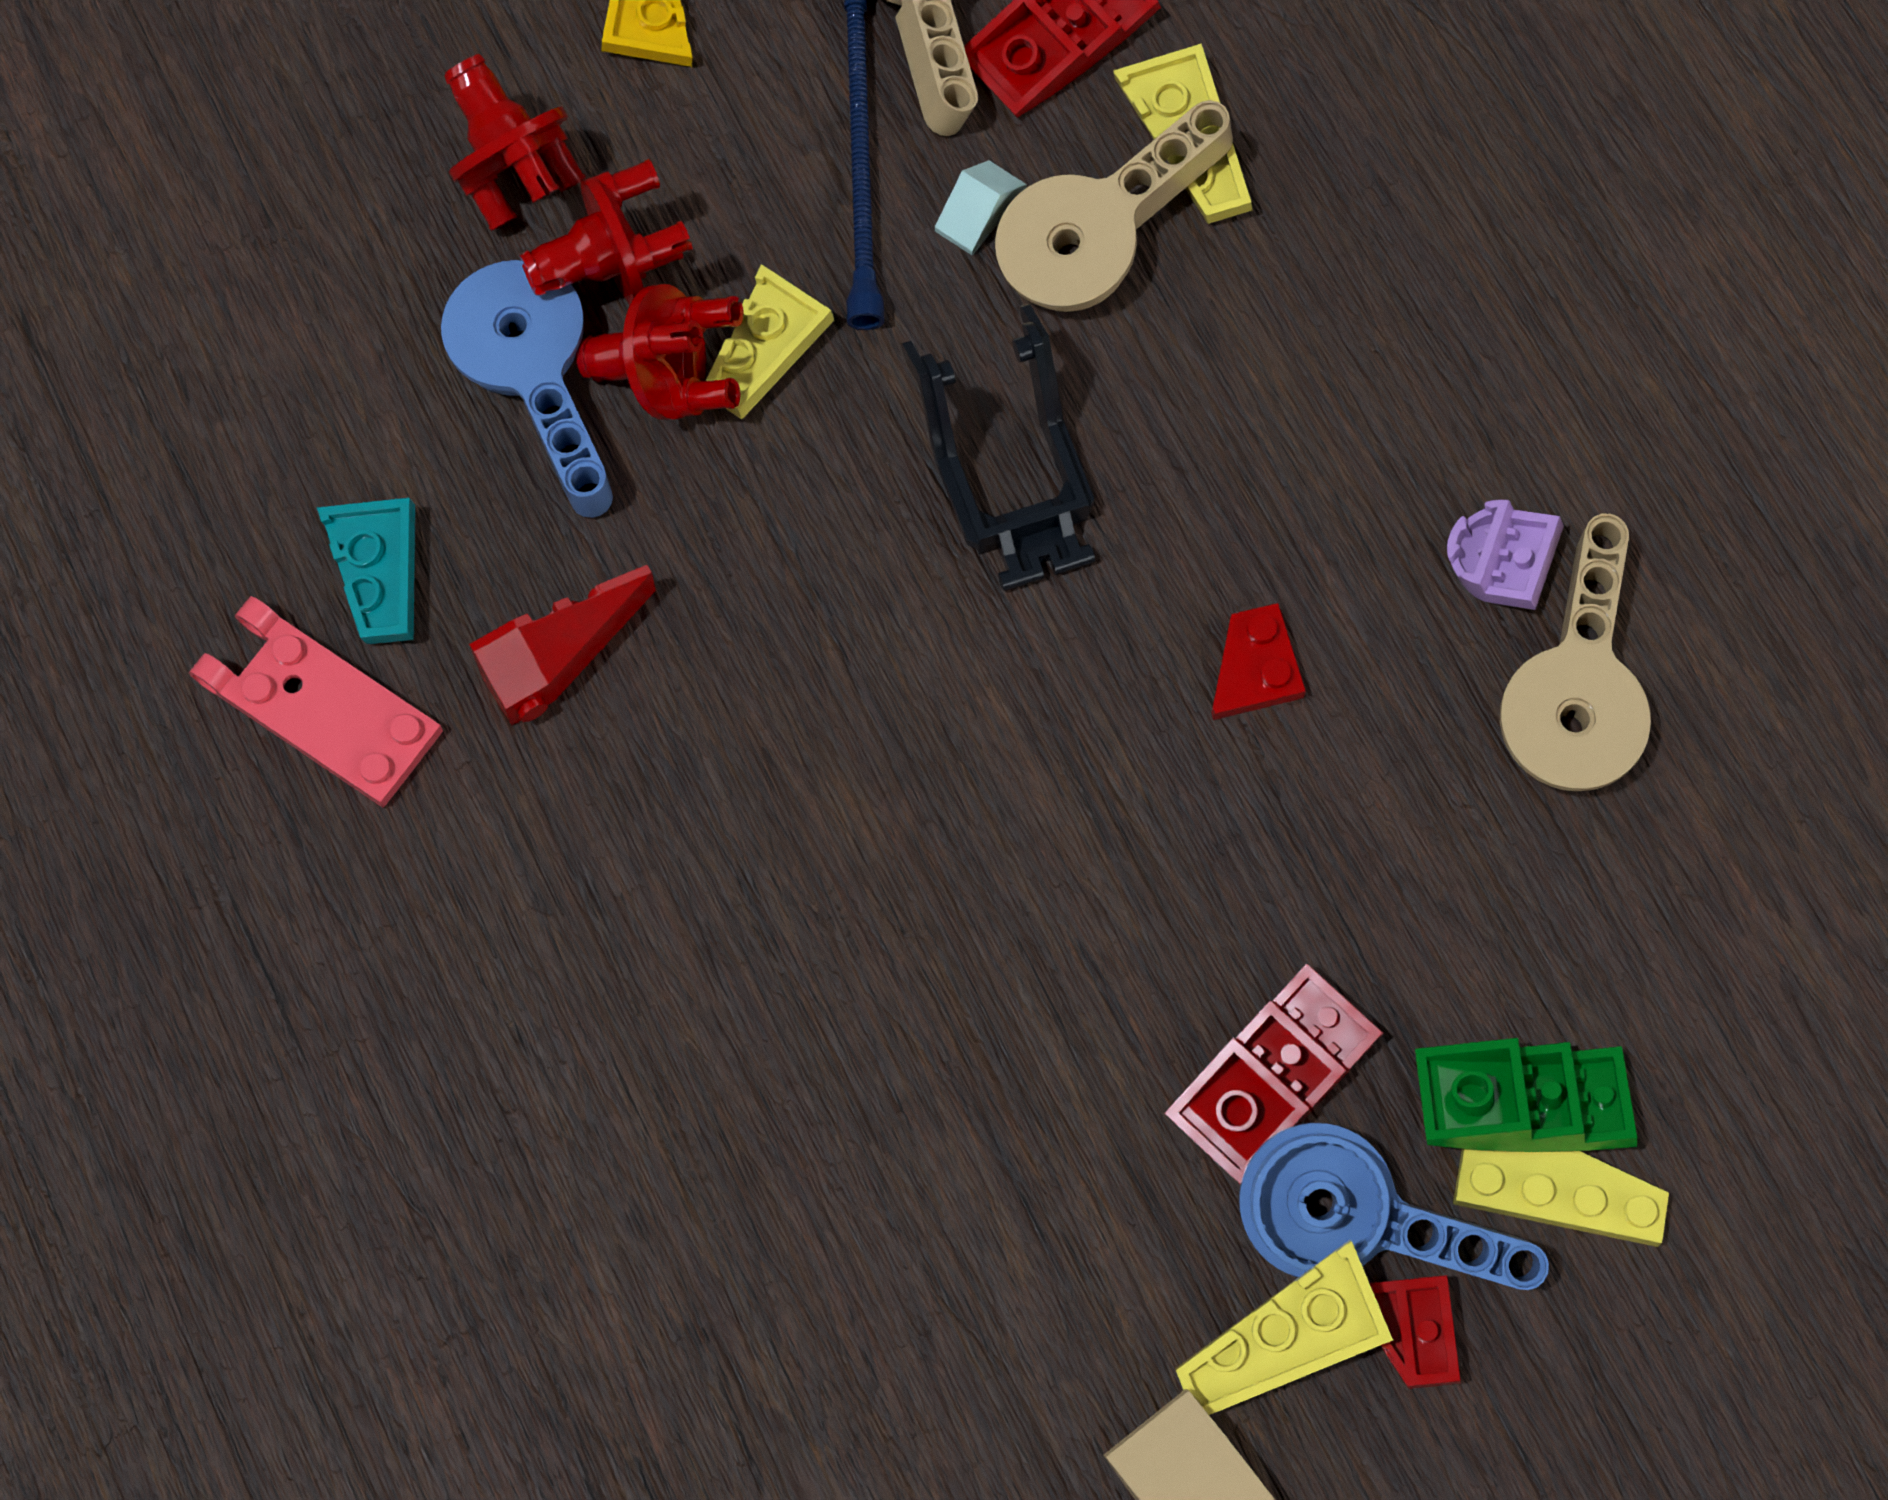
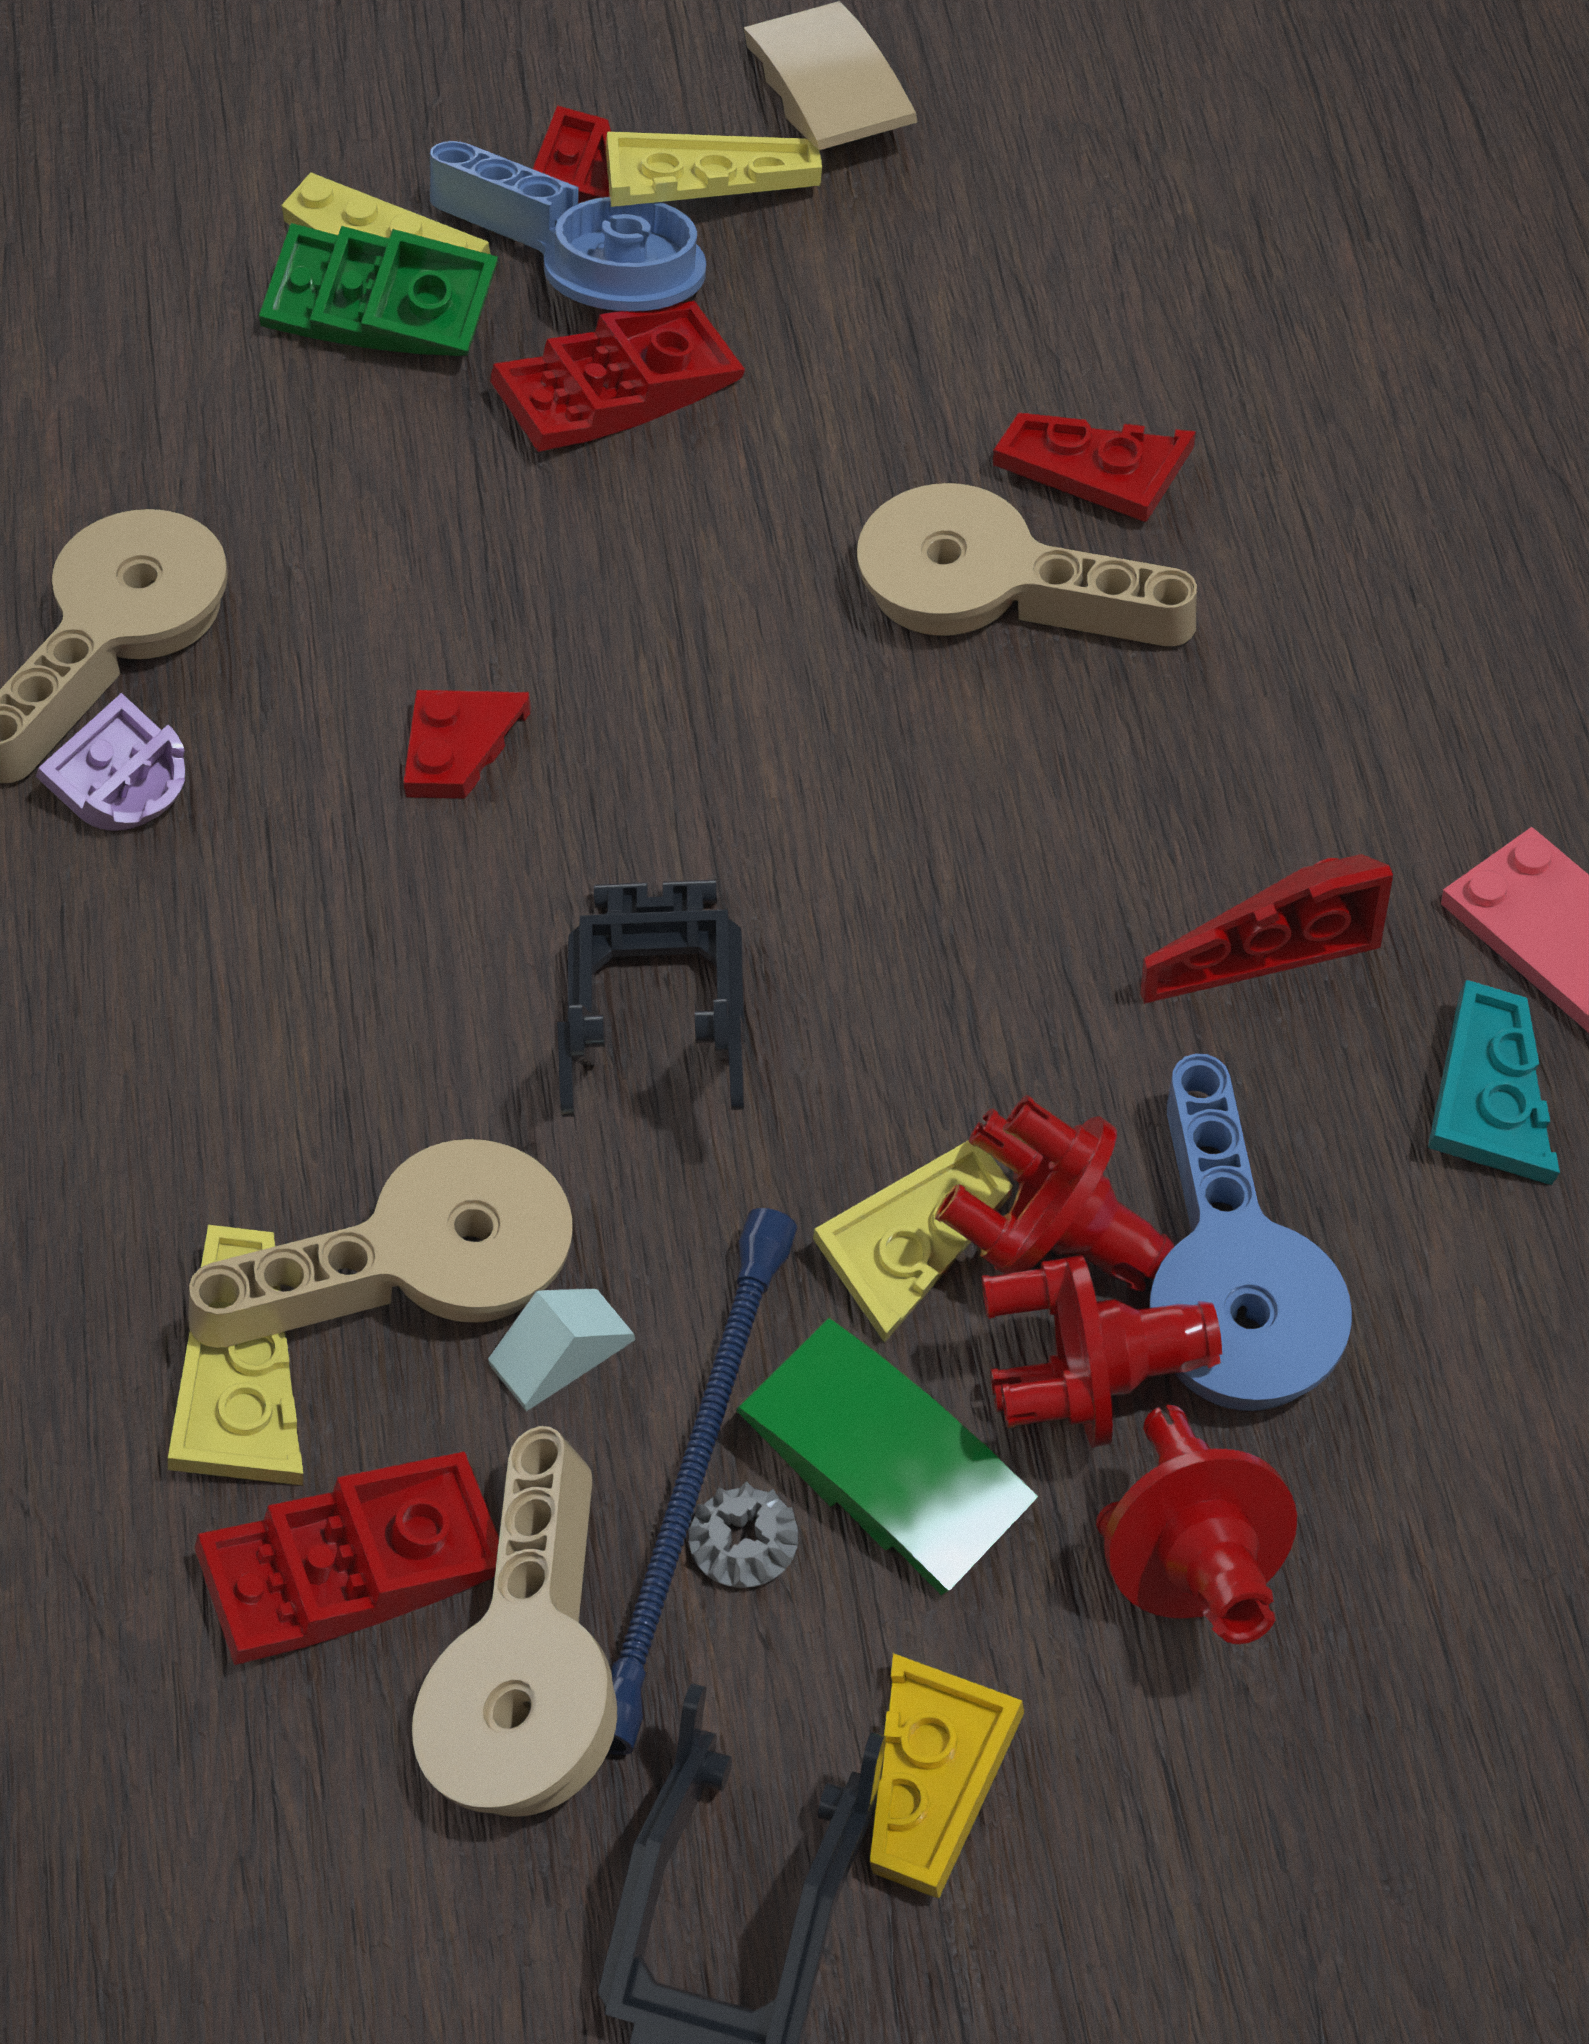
camera: 160 degrees left, 15 degrees down
(739, 177) = (887, 1454): none -> green slope
(819, 1088) = (1103, 466): none -> red wing
(825, 127) = (749, 1561): none -> light grey gear
(870, 928) = (961, 555): none -> tan beam

